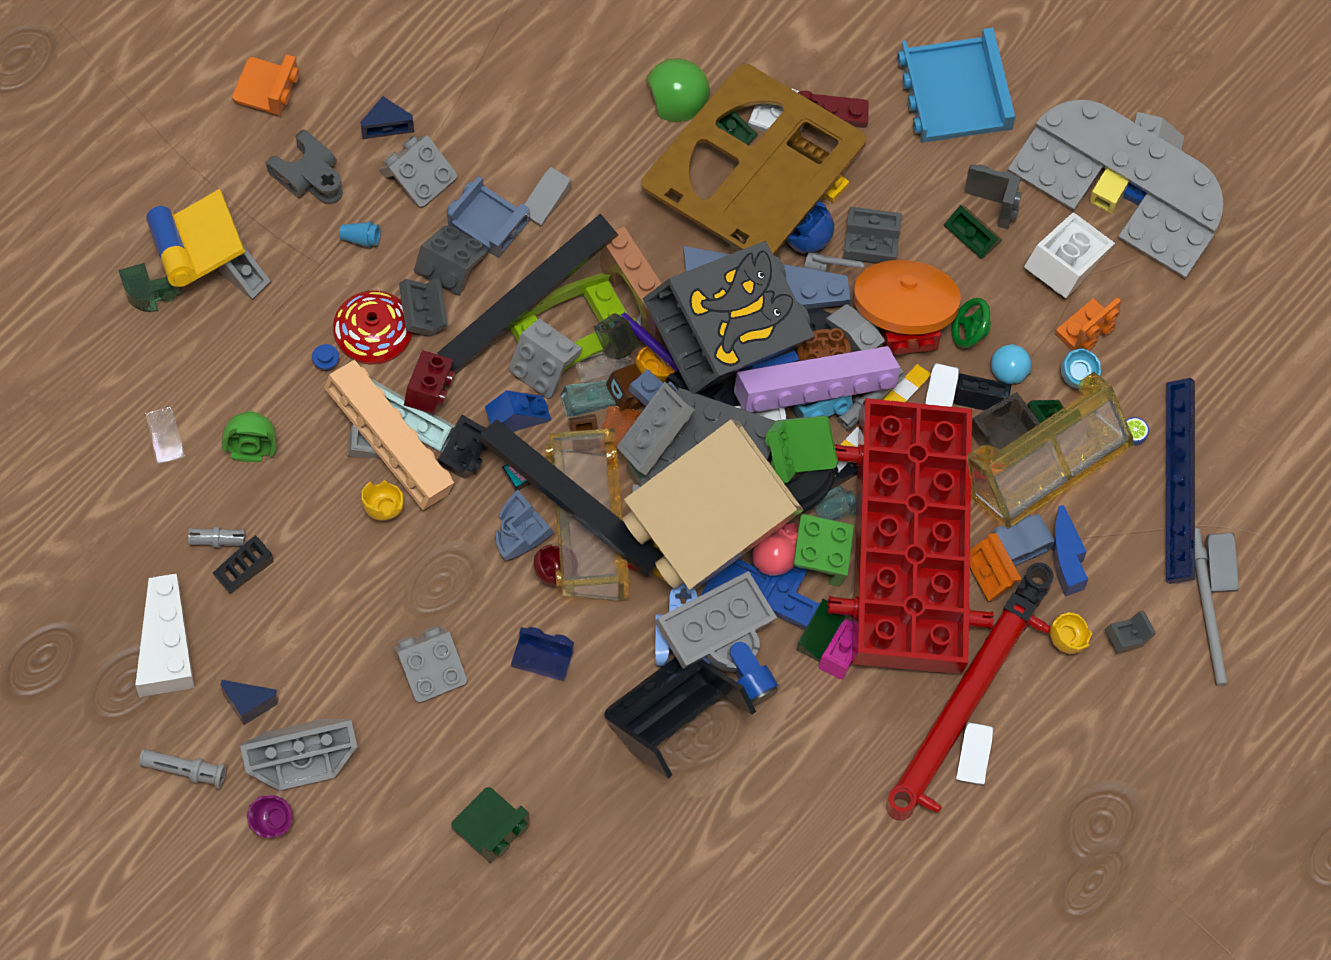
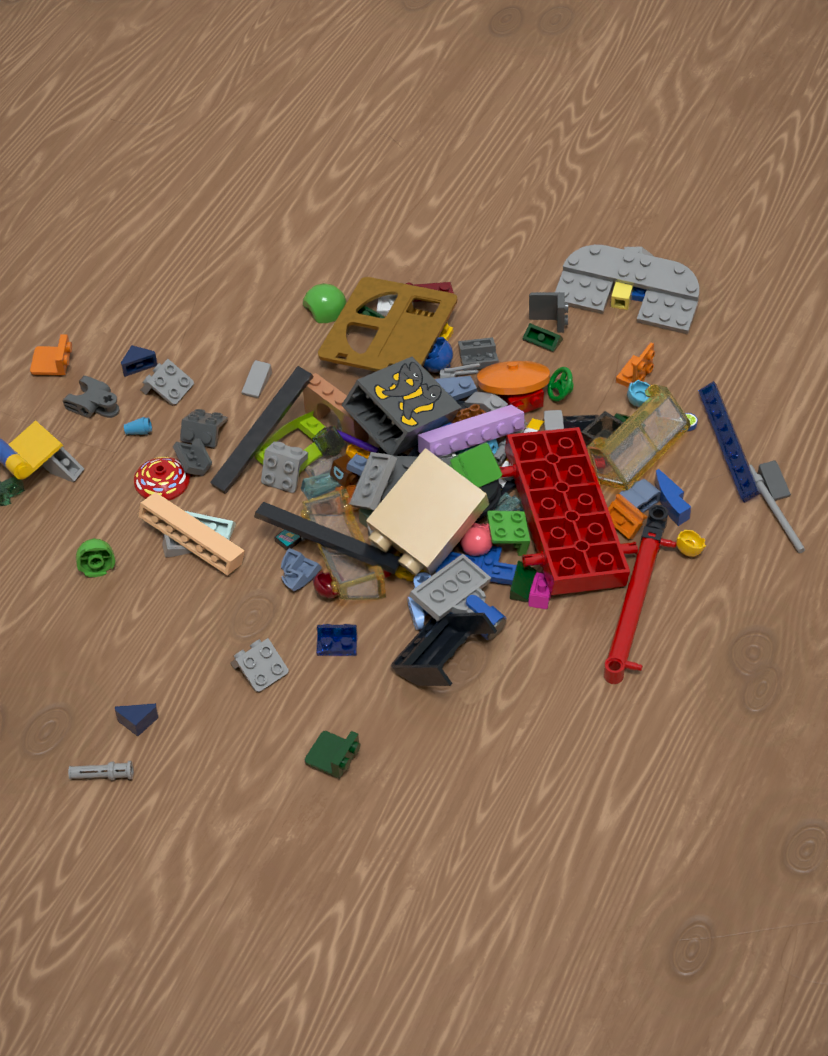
camera: 10 degrees left, 15 degrees down
(164, 646) = (68, 698): white wedge -> none
(165, 435) = (34, 572): clear slope -> none
(216, 537) = (87, 624): light grey pin -> none
(237, 558) = (117, 625): black slope -> none
(270, 816) = (173, 785): magenta hair -> none
(300, 753) = (185, 740): light grey wedge -> none
(325, 357) = (133, 502): blue plate -> none
(382, 500) = (198, 575): yellow hair -> none
(428, 382) = (210, 497): dark red brick -> none
(463, 448) = (245, 531): black bracket -> none
(487, 217) = (221, 398): sand blue panel -> none
(518, 410) = (276, 497): blue slope -> none
(957, 88) = (505, 264): dark azure panel -> none
(974, 753) = (653, 629): slope -> none
(1011, 364) = (594, 402): medium azure hair -> none
(1068, 254) = (608, 335): white slope -> none
(1131, 632) = (730, 534): dark grey bracket -> none

